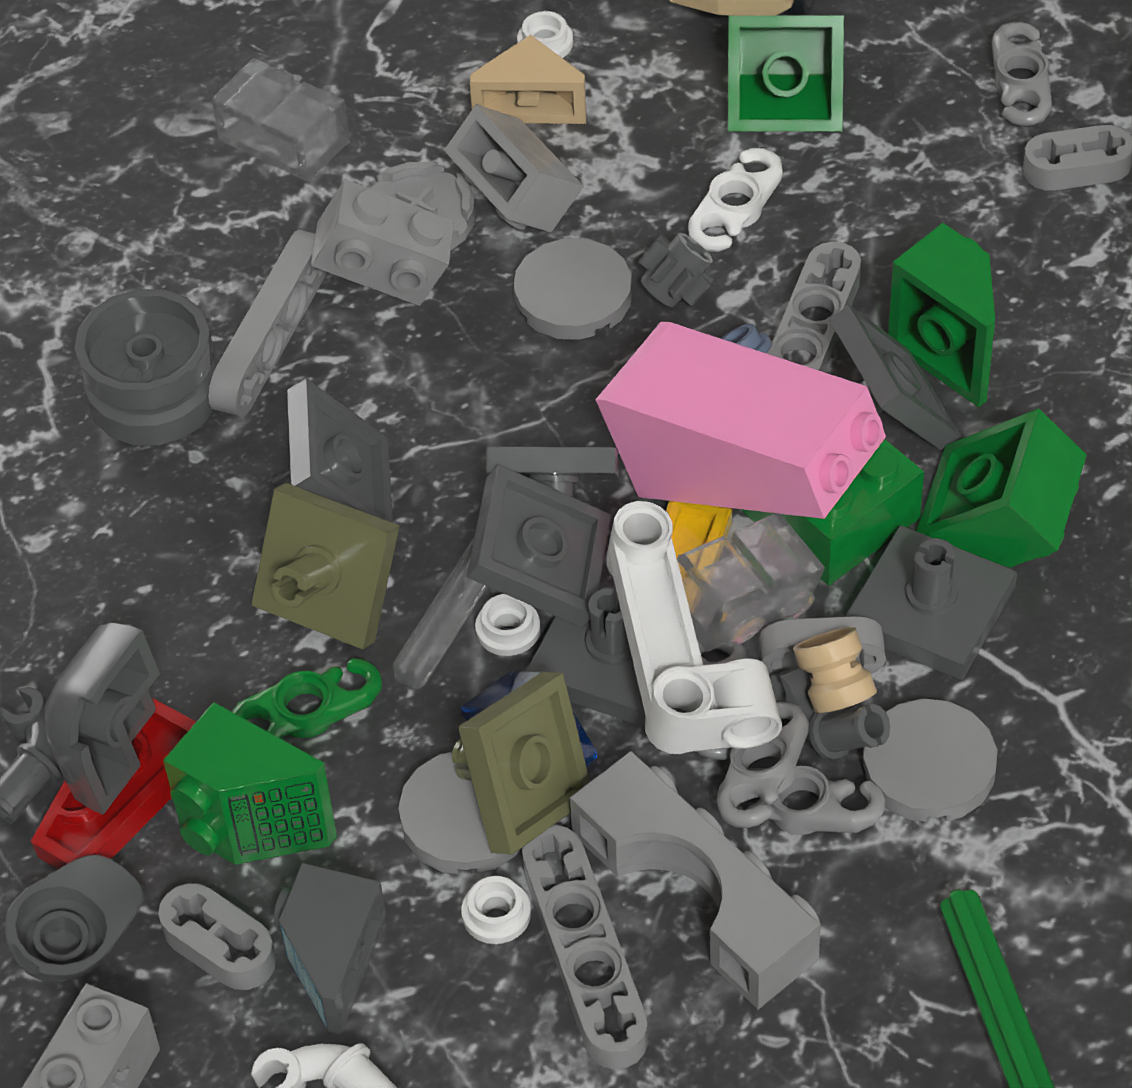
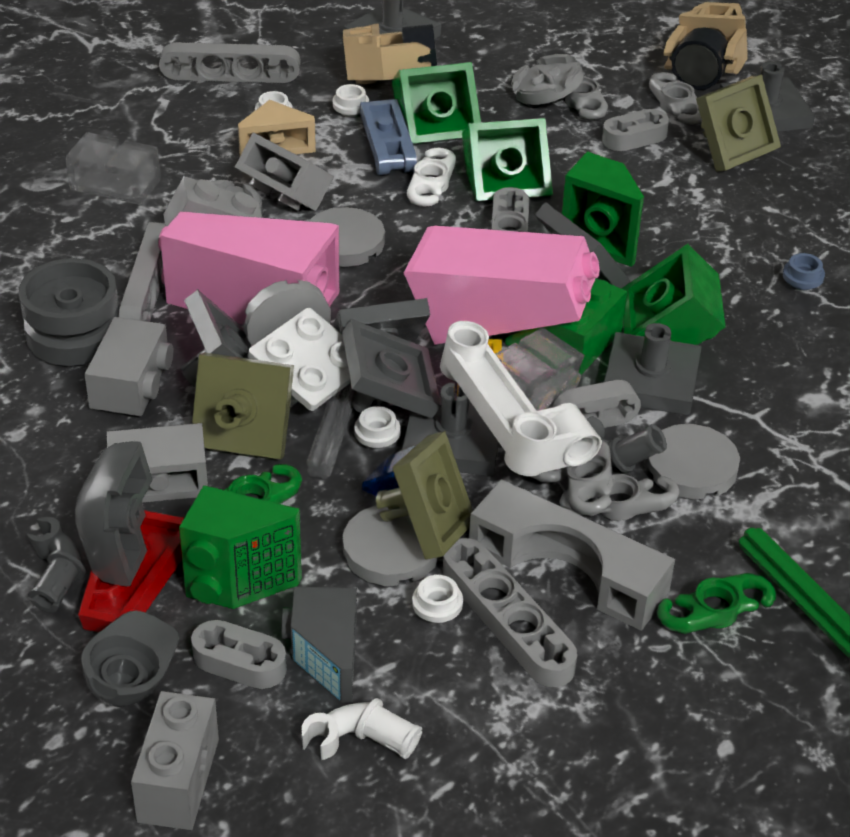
camera: 20 degrees left, 10 degrees down
(199, 469) = (128, 366): none -> light grey brick
(201, 628) = (173, 458): none -> light grey brick
(412, 341) = (242, 255): none -> bright pink slope
(429, 433) = (279, 304): none -> light grey tile
(434, 499) = (315, 352): none -> white bracket
(662, 40) = (348, 100): none -> white plate
(676, 270) = (412, 213): dark grey gear -> none
(694, 115) = (388, 136): none -> sand blue plate
(836, 674) = (619, 412): tan wheel -> none
(846, 1010) = (704, 616): none -> green piece
(852, 194) = (507, 156): none -> green slope
(972, 45) = (548, 81): none -> light grey tile

